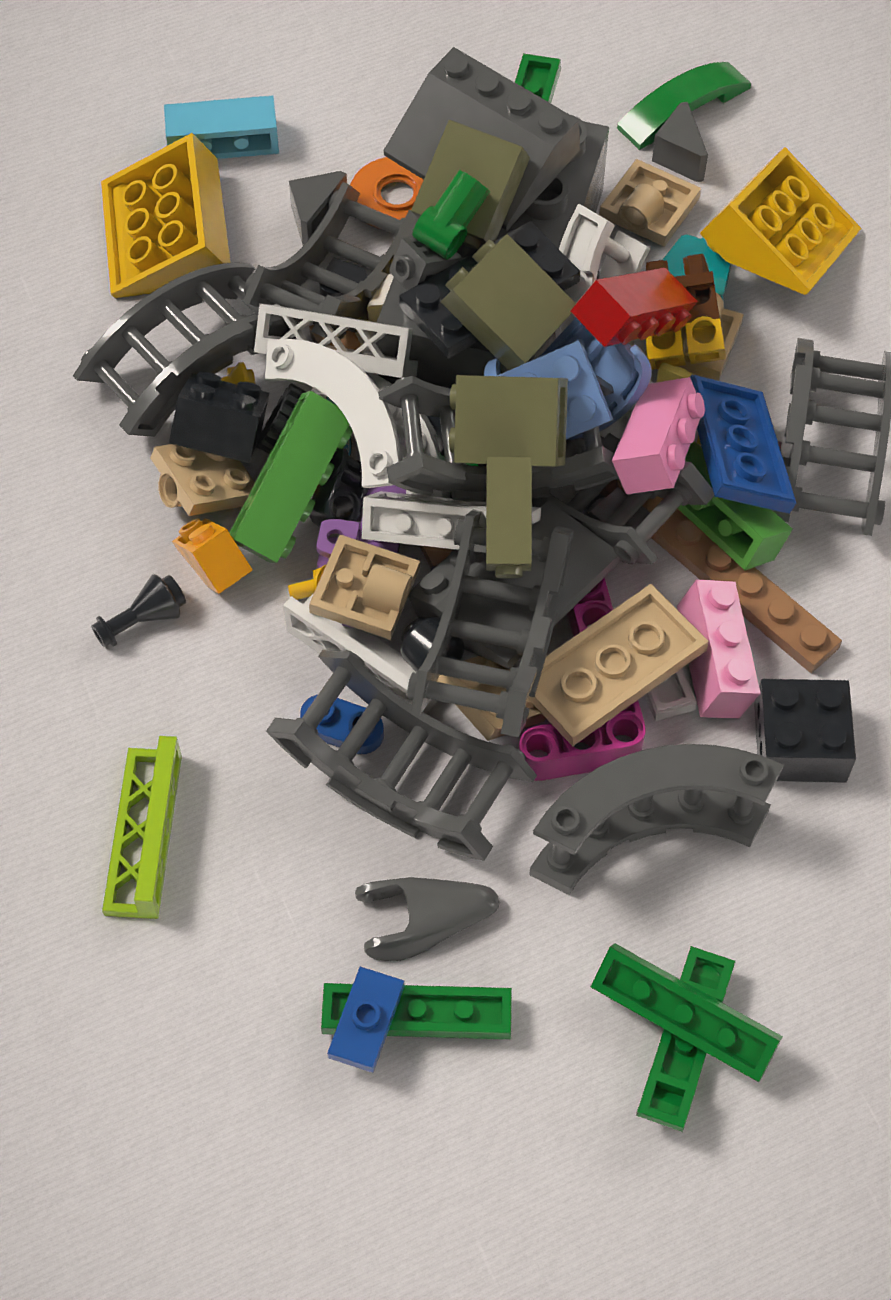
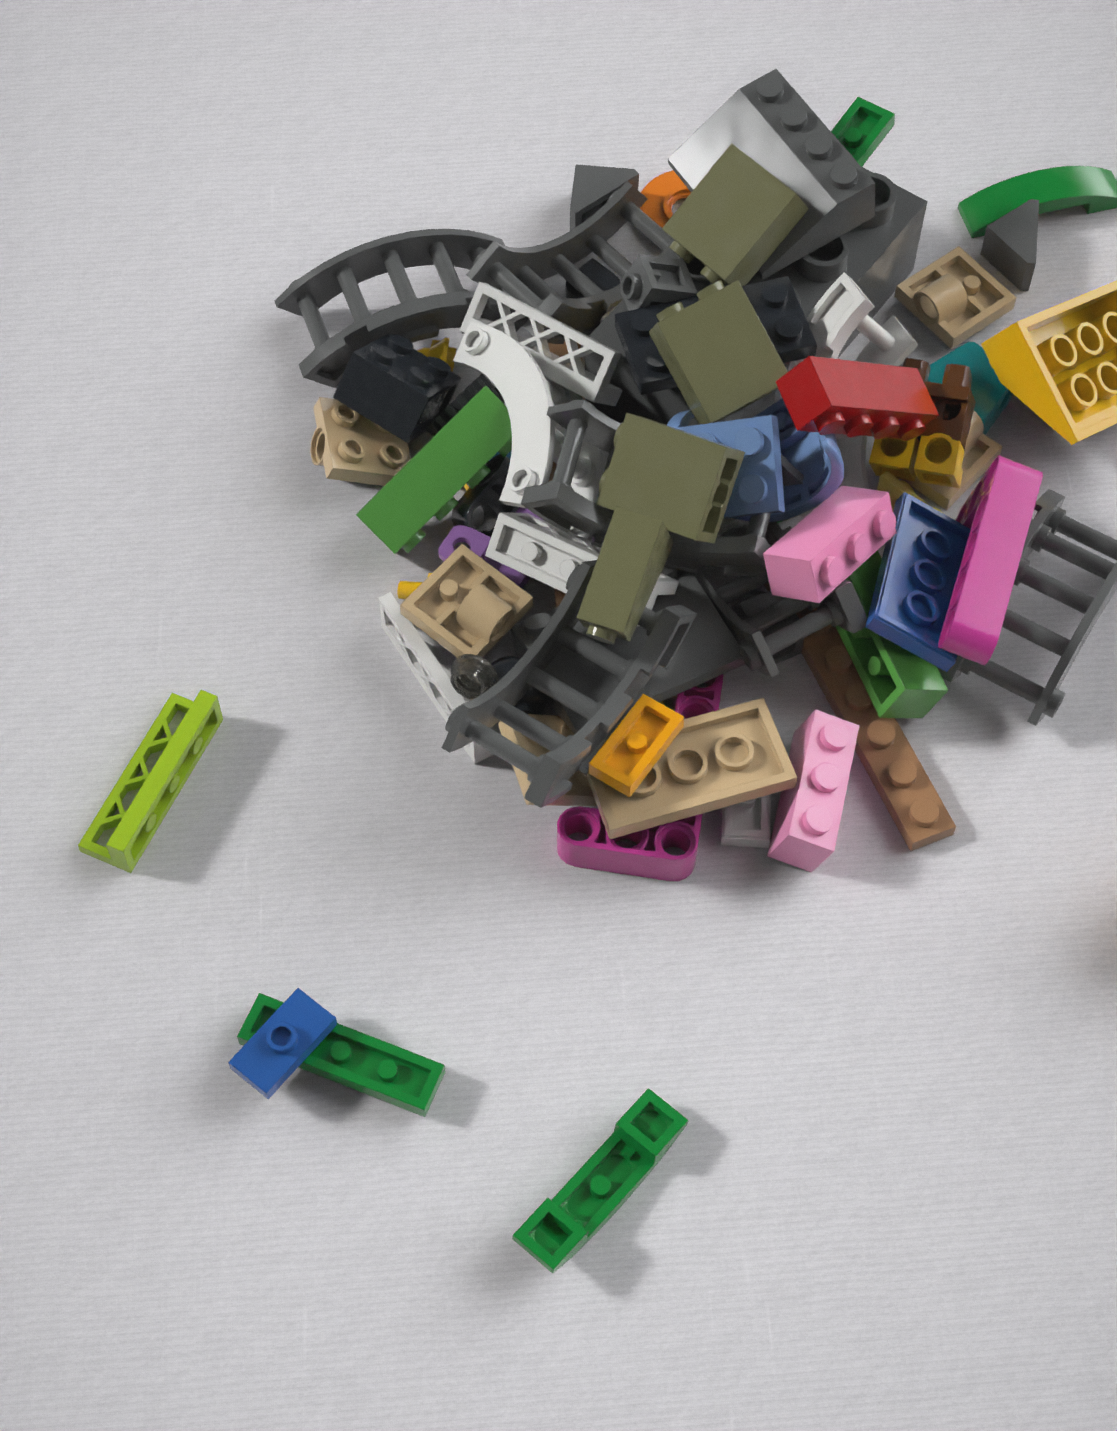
camera: 20 degrees right, 0 degrees up
(156, 601) = (260, 555): black piece -> none
(164, 218) = (437, 166): yellow slope -> none
(212, 554) = (334, 524): light orange slope -> none
(226, 126) = (534, 91): medium azure brick -> none
(341, 720) = (392, 737): blue plate -> none
(378, 795) = (398, 824): dark grey fence -> none
(398, 645) = (472, 675): none -> clear smoke plate
(434, 910) = (401, 961): dark grey animal -> none
(445, 224) = (686, 252): green piece -> none
(567, 658) = (636, 745): none -> light orange plate
(644, 795) = (667, 918): dark grey fence -> none
(686, 1012) = (611, 1154): green plate -> none
(783, 369) = (999, 523): none -> dark pink beam
(806, 728) = (868, 906): black piece -> none

